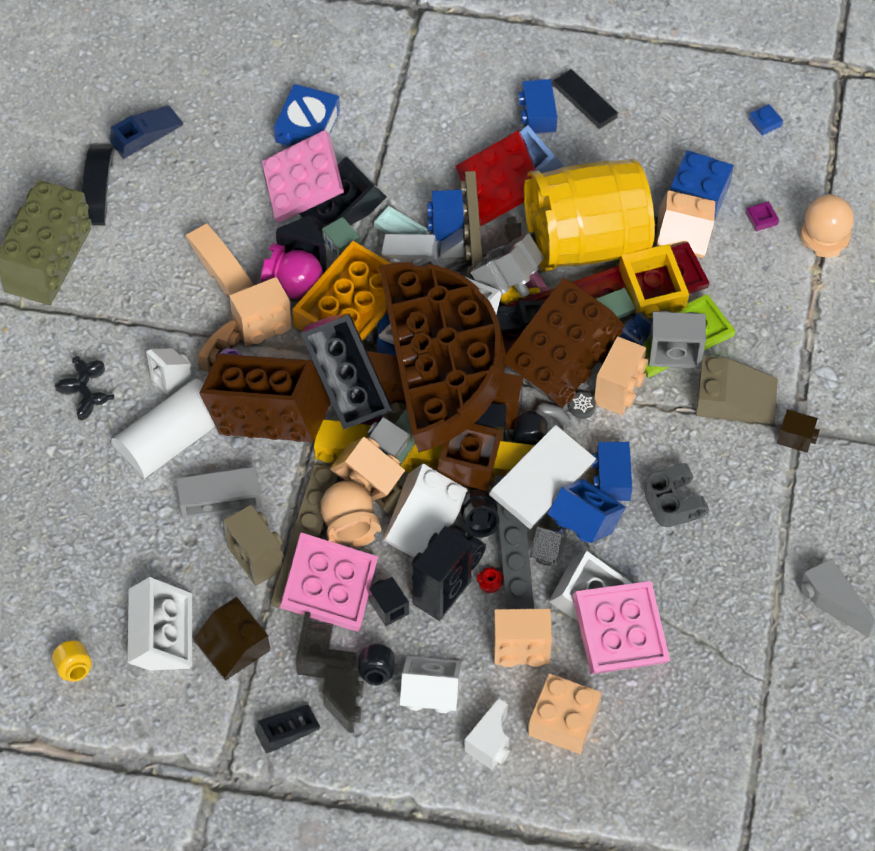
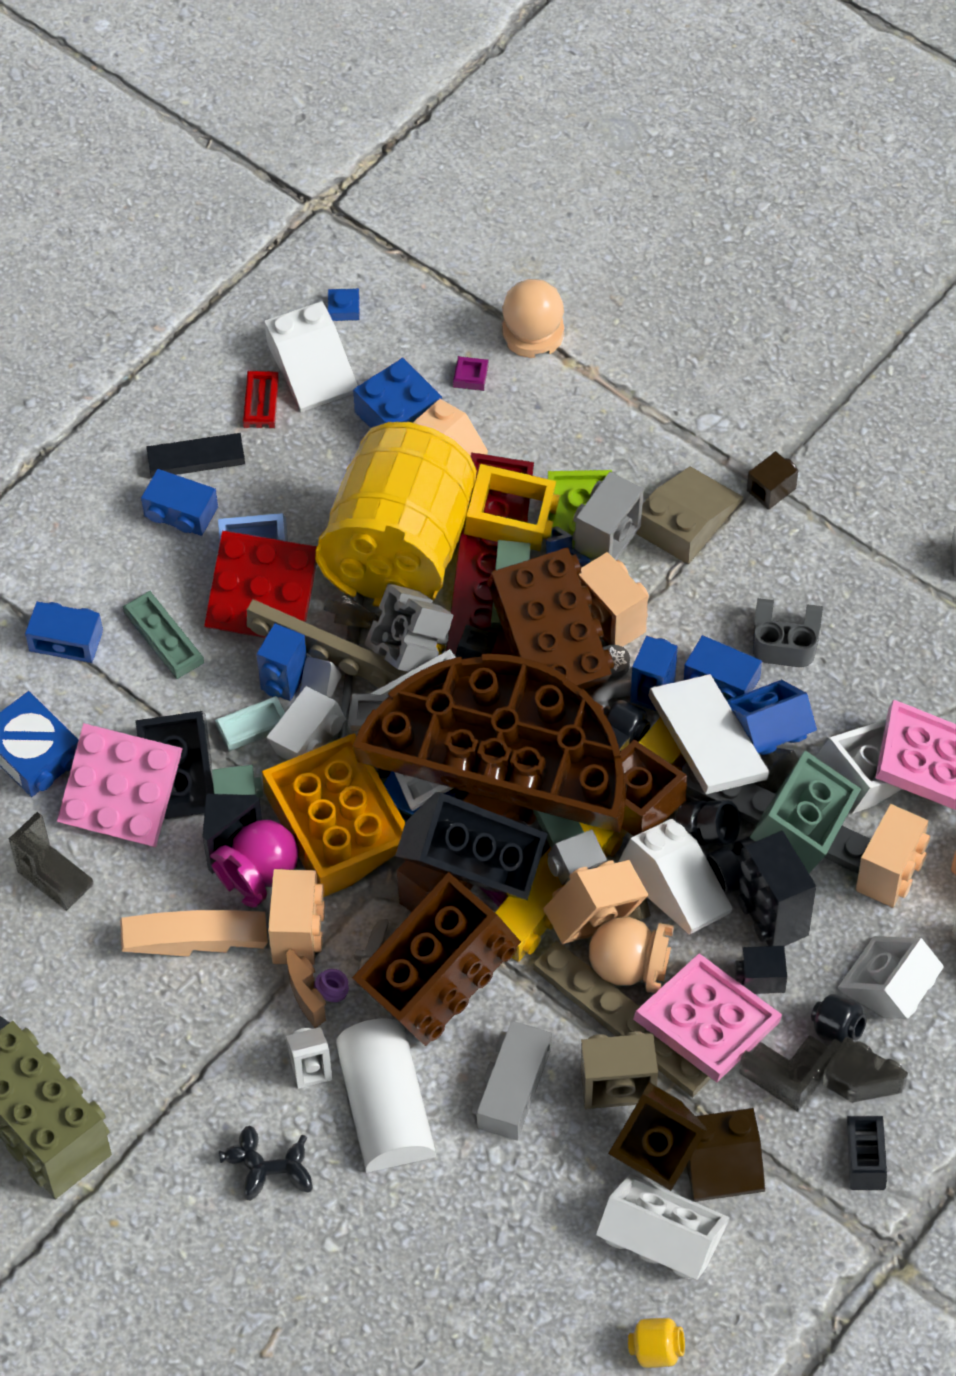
camera: 60 degrees left, 0 degrees up
(215, 585) = (658, 1137): none -> dark brown slope
(226, 167) = (46, 866): none -> clear smoke panel
(400, 95) = (64, 631): none -> blue brick
(436, 149) = (163, 634): none -> sand green tile
(516, 563) = (809, 809): none -> sand green slope
(580, 423) = (652, 668): none -> blue brick
(657, 114) = (260, 419): none -> red tile
(706, 118) = (310, 356): none -> white slope

